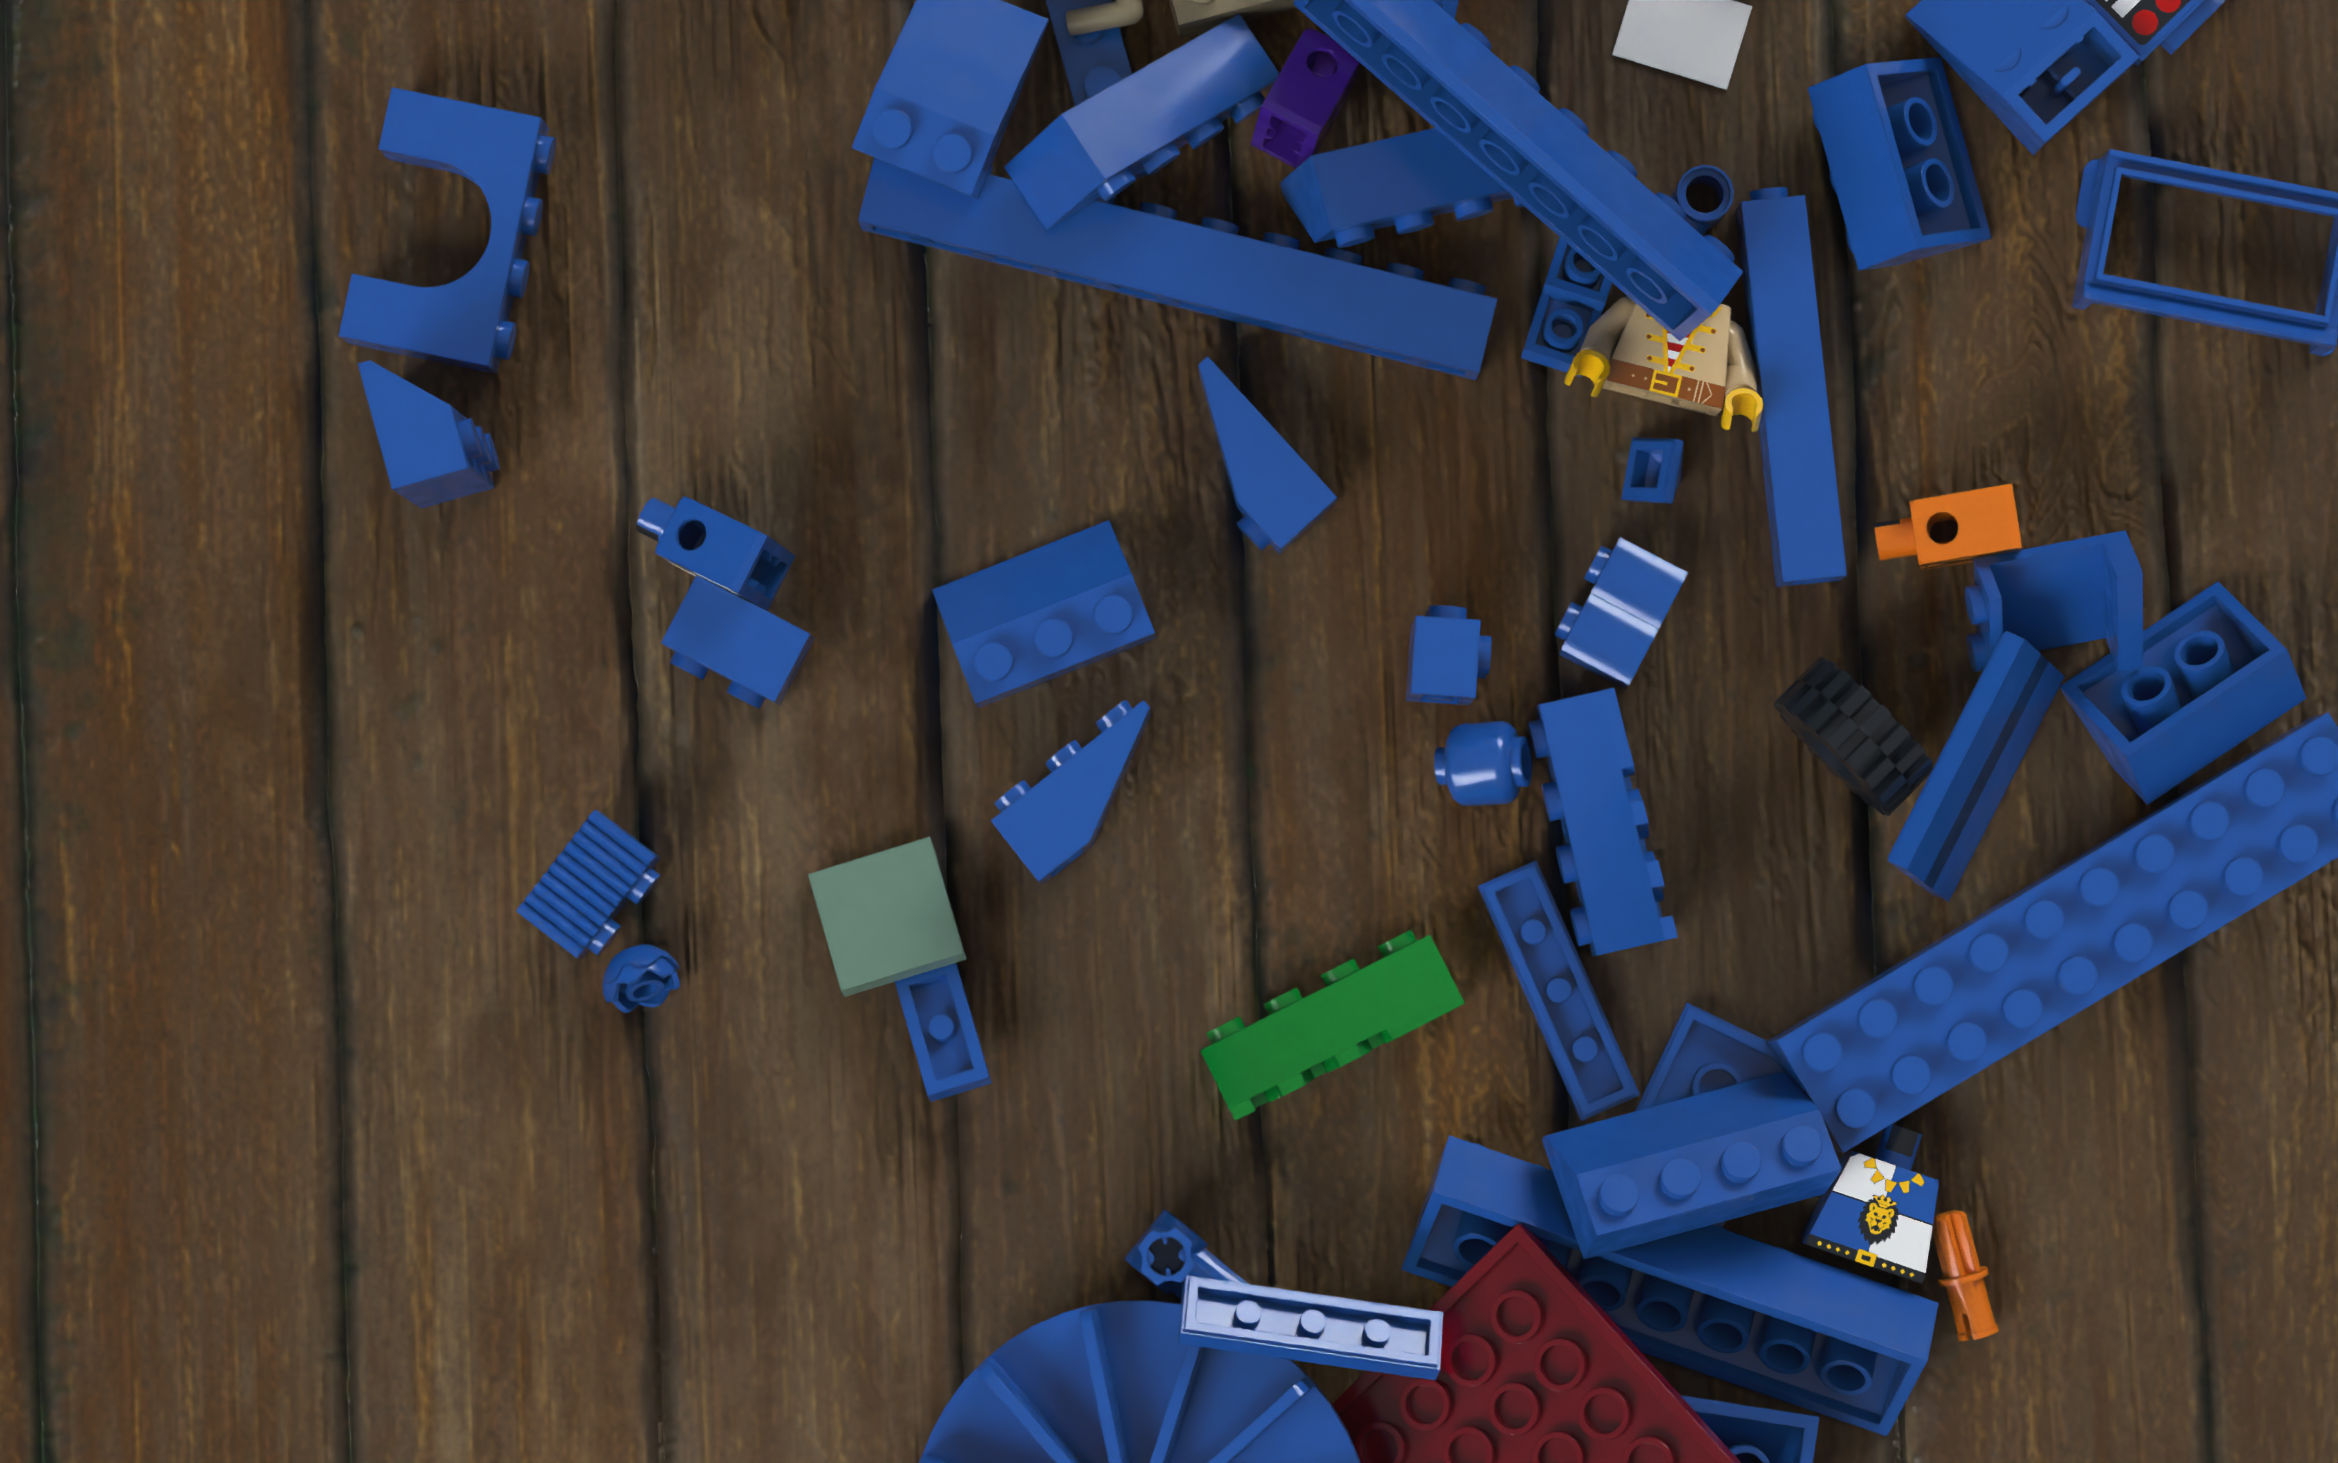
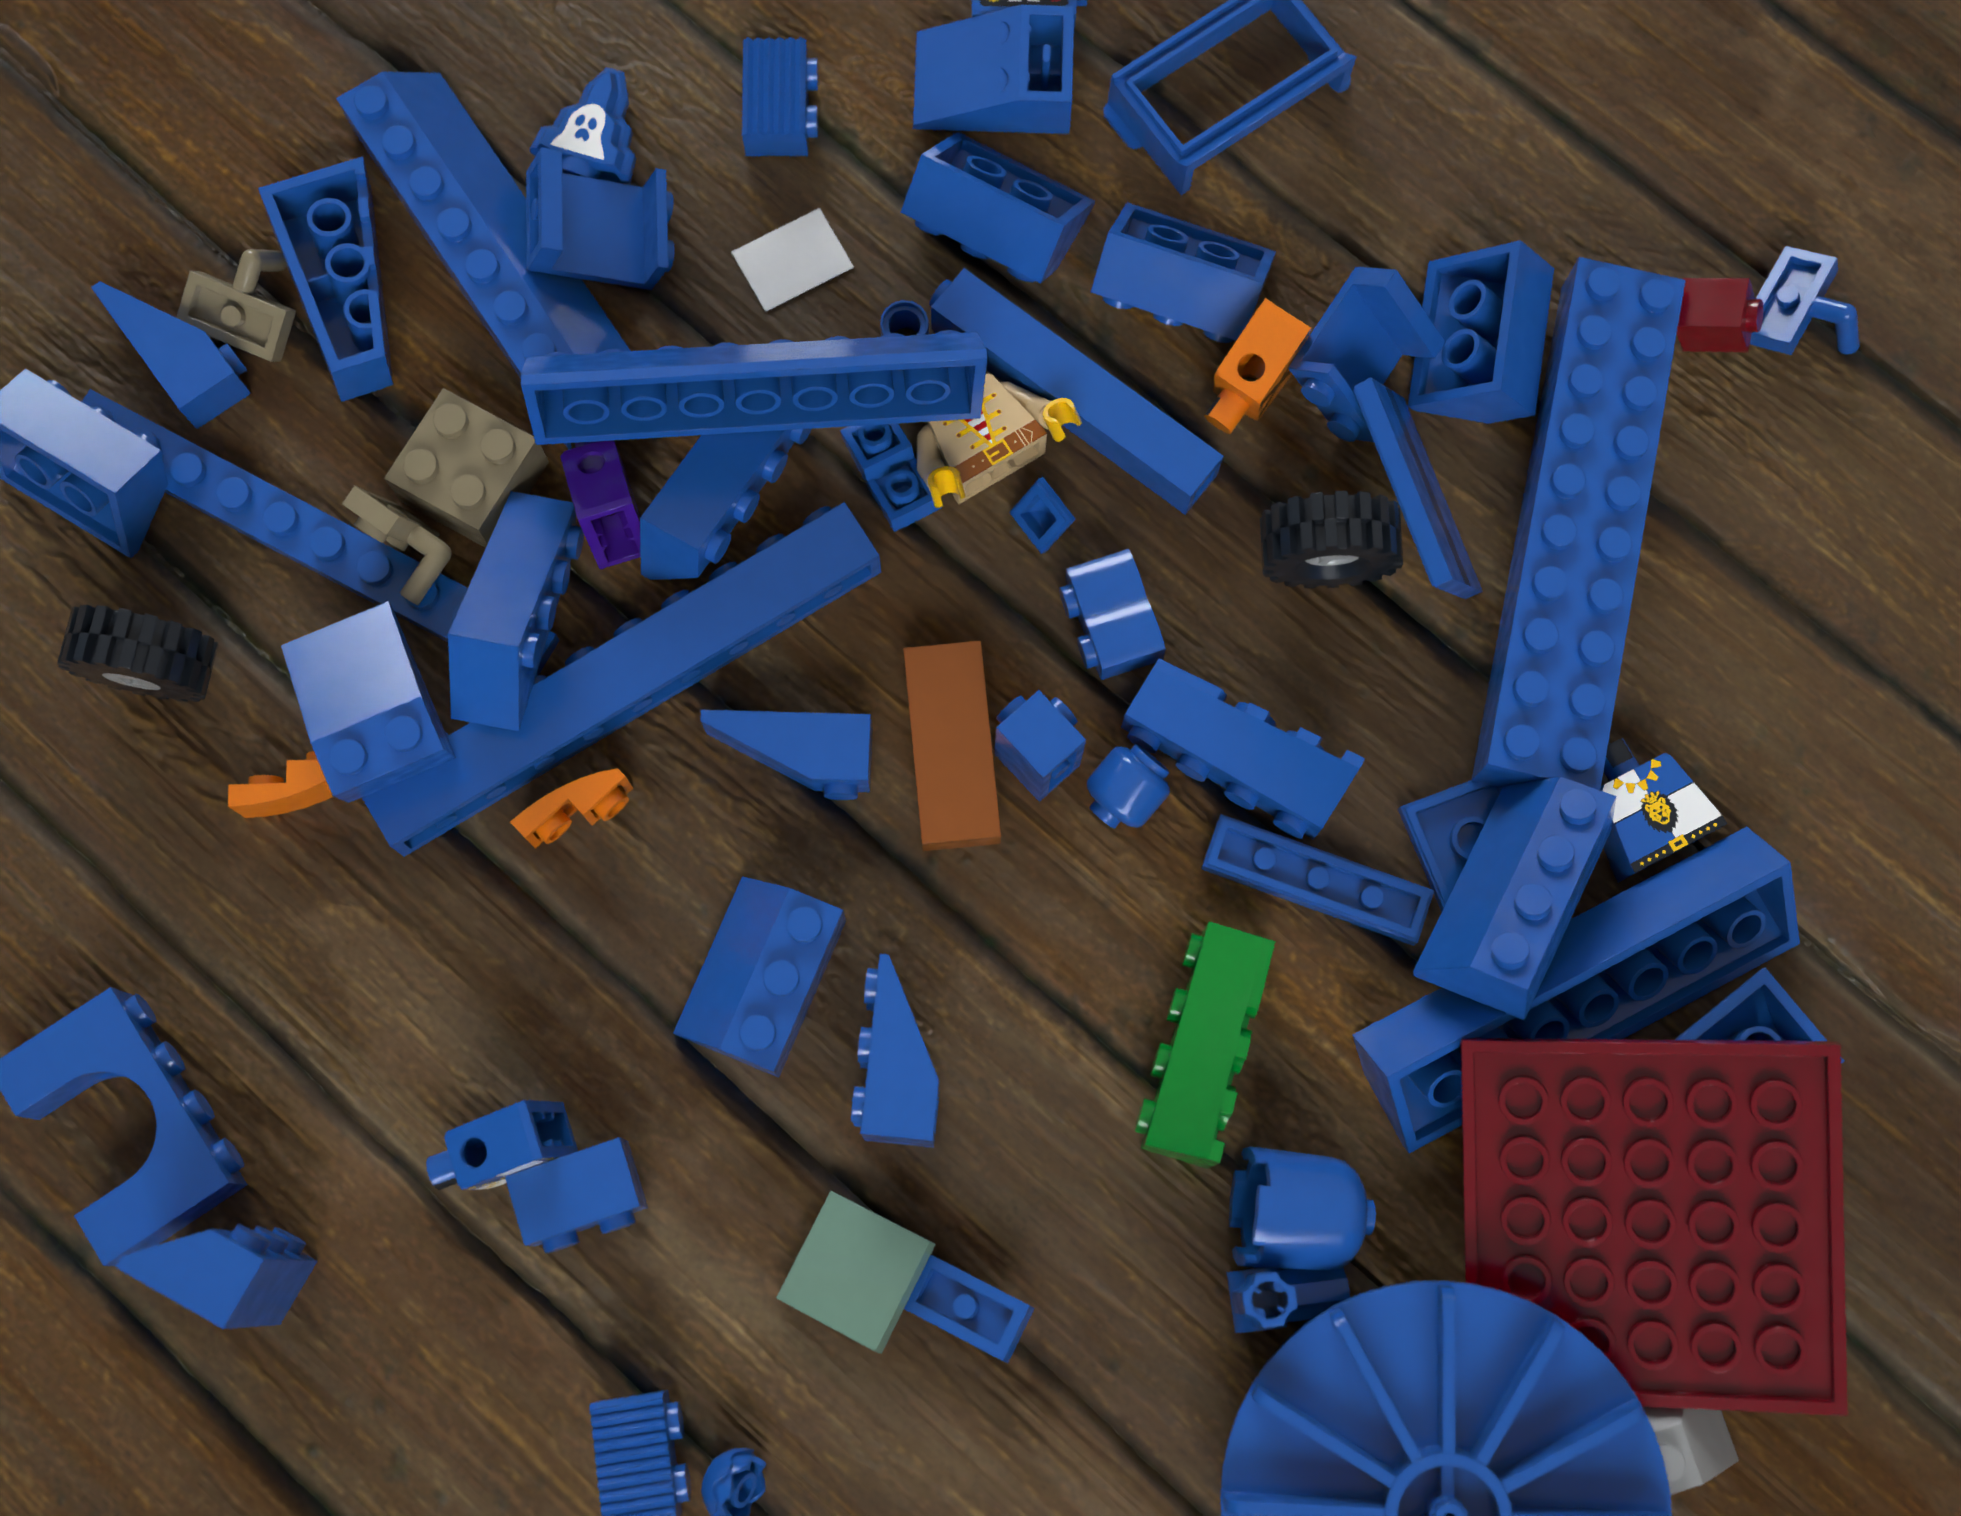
camera: 55 degrees left, 10 degrees down
(804, 74) = (271, 796): none -> orange slope
(1052, 336) = (593, 796): none -> orange slope
(1265, 1219) = (1298, 1211): none -> blue cylinder
(1310, 1327) = (1409, 1248): tile -> none
(1381, 585) = (952, 746): none -> dark orange piece
(1963, 1276) = (1740, 799): orange axle -> none
(1994, 380) = (1181, 273): none -> blue slope

